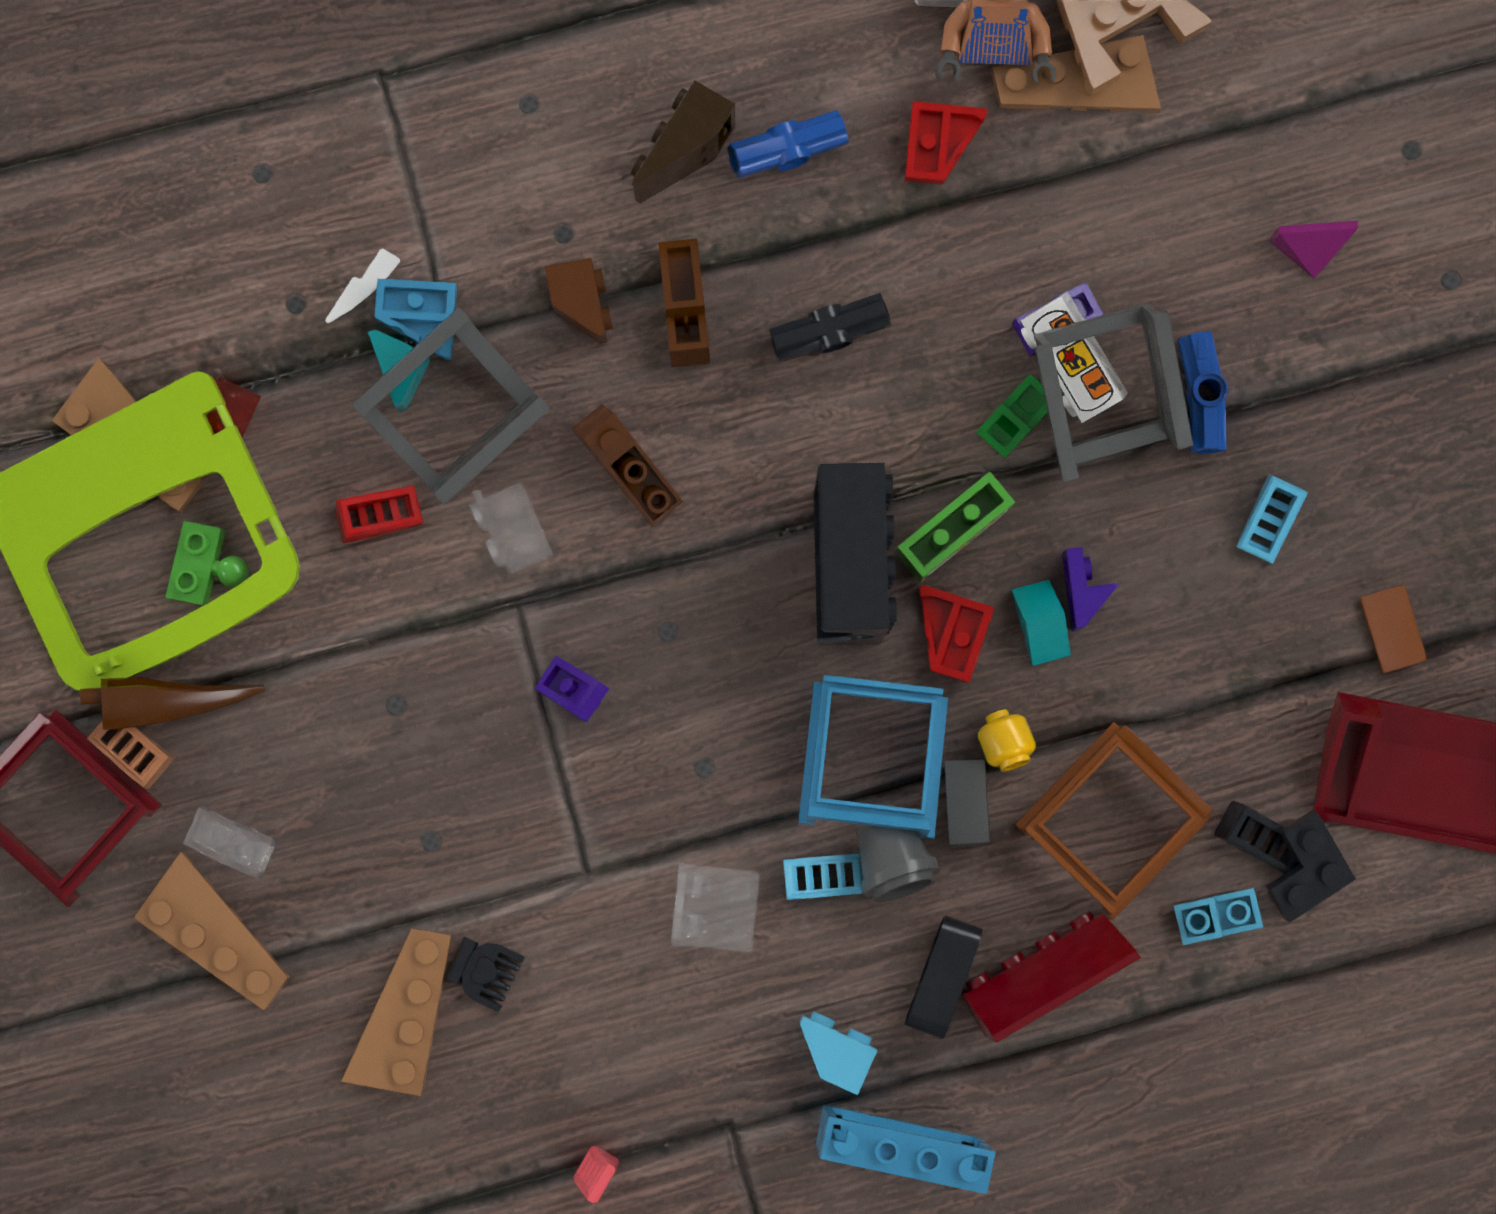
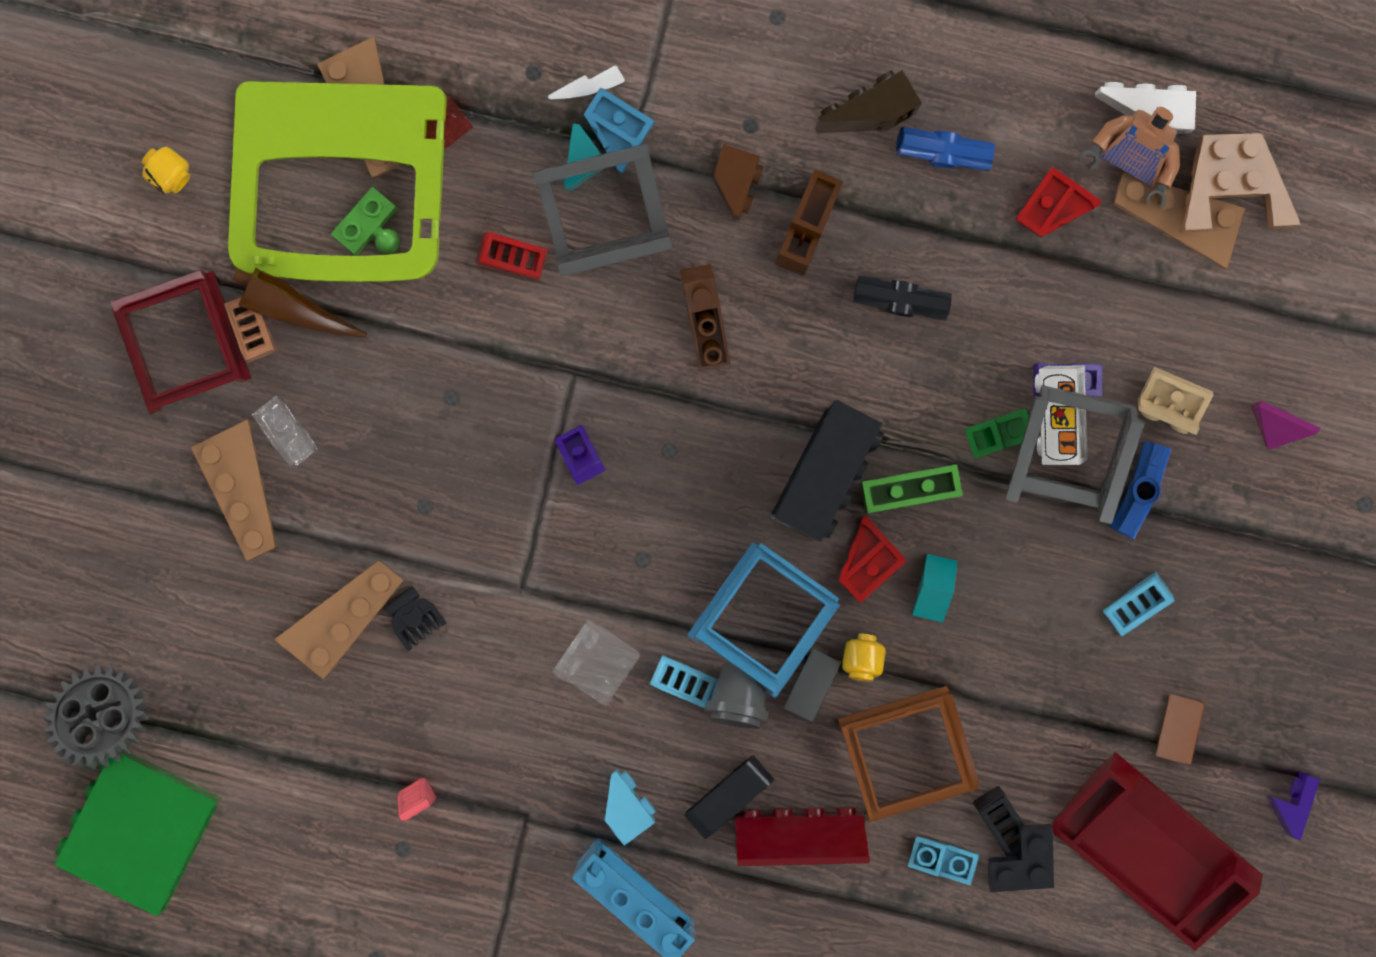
camera: 25 degrees right, 5 degrees up
(513, 526) = (600, 318): clear bracket -> none
(1082, 600) = (972, 589): dark purple slope -> none
(1185, 279) = (1174, 401): none -> tan bracket

